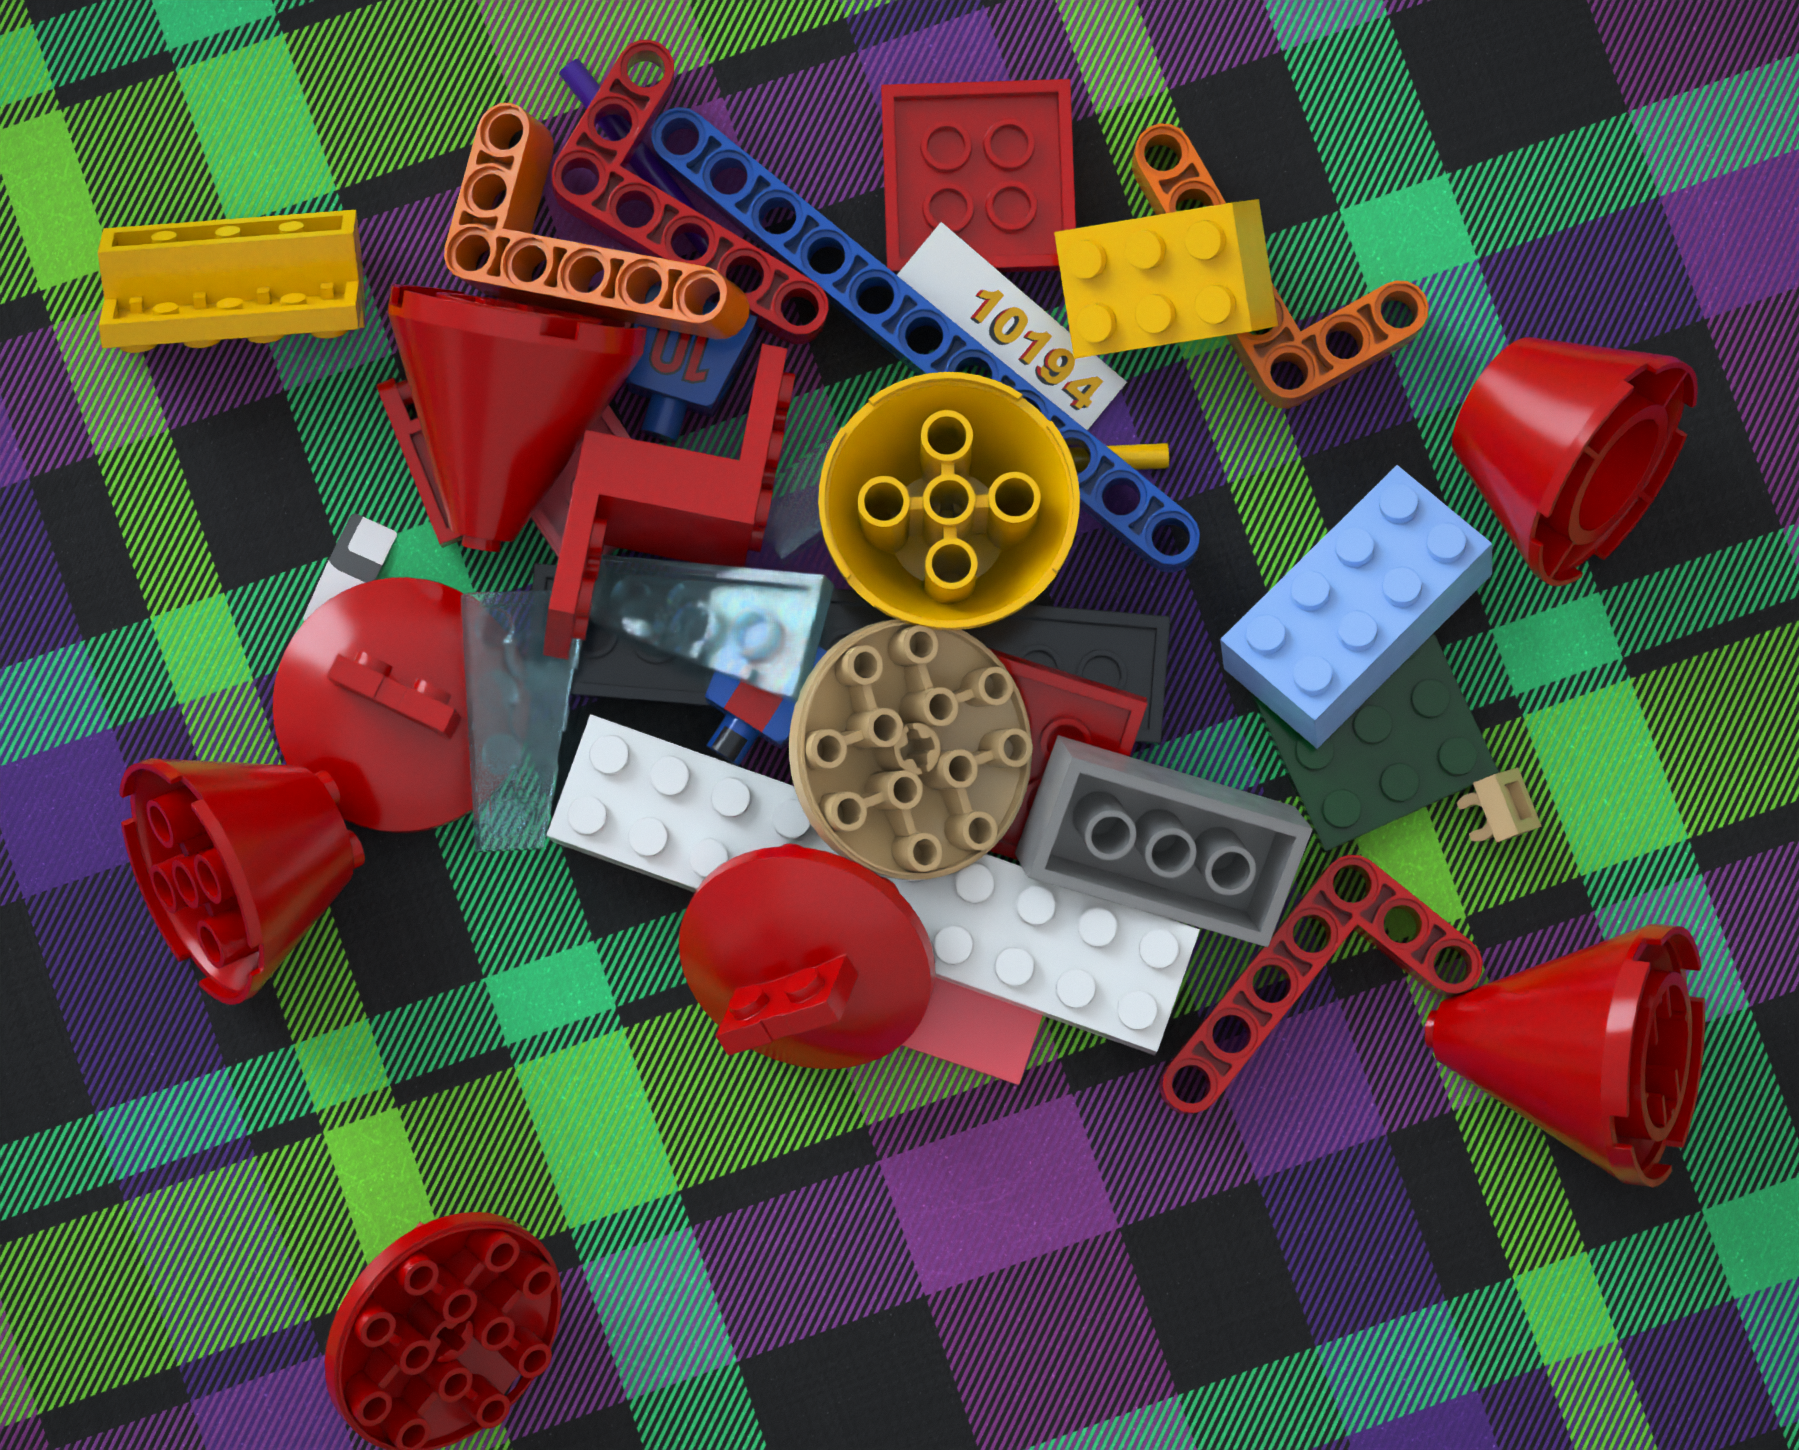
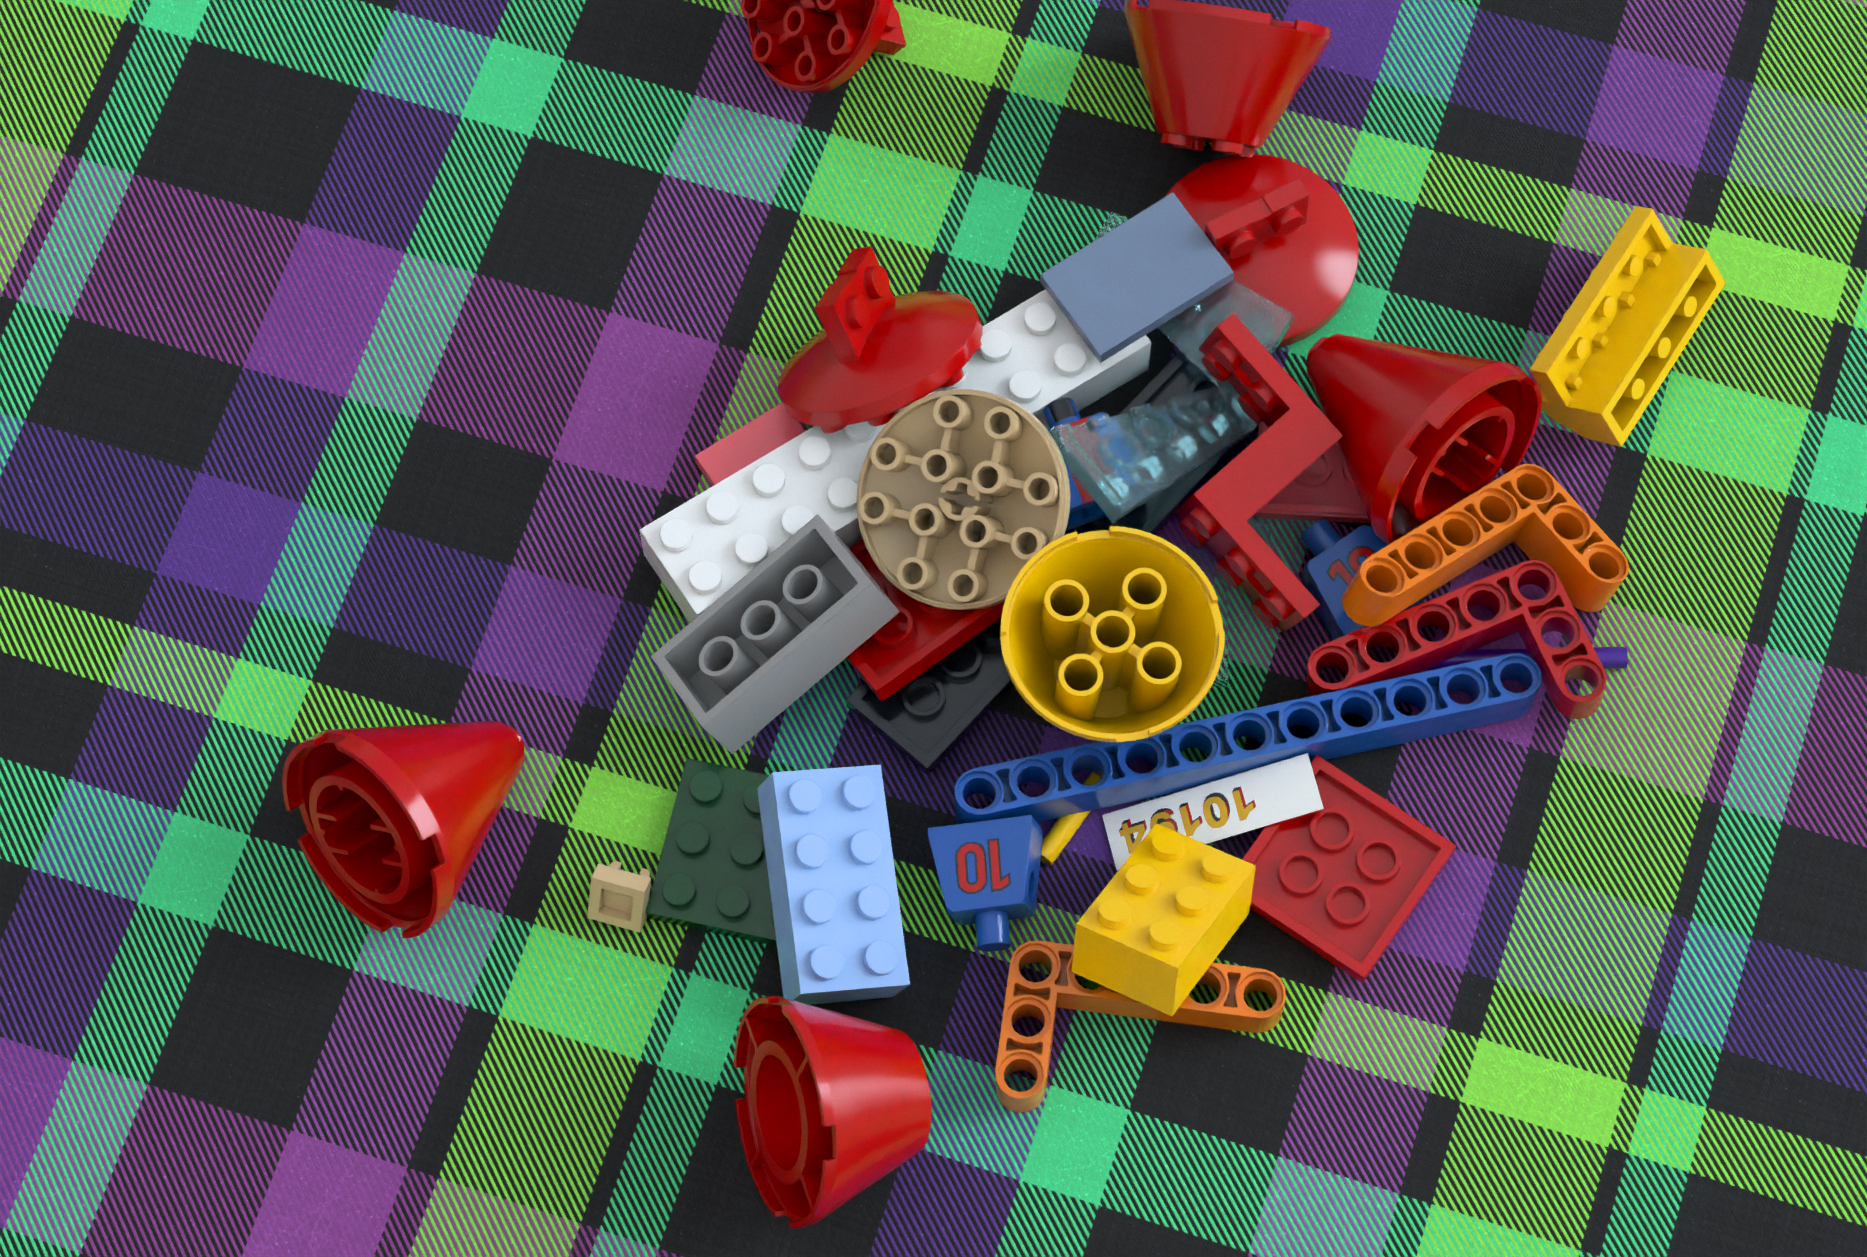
camera: 135 degrees right, 15 degrees down
(354, 559) = (1376, 294): white sticker -> none
(541, 767) = (1136, 277): none -> sand blue tile
(1232, 482) = (989, 874): none -> blue torso
(1301, 968) = (625, 682): red beam -> none

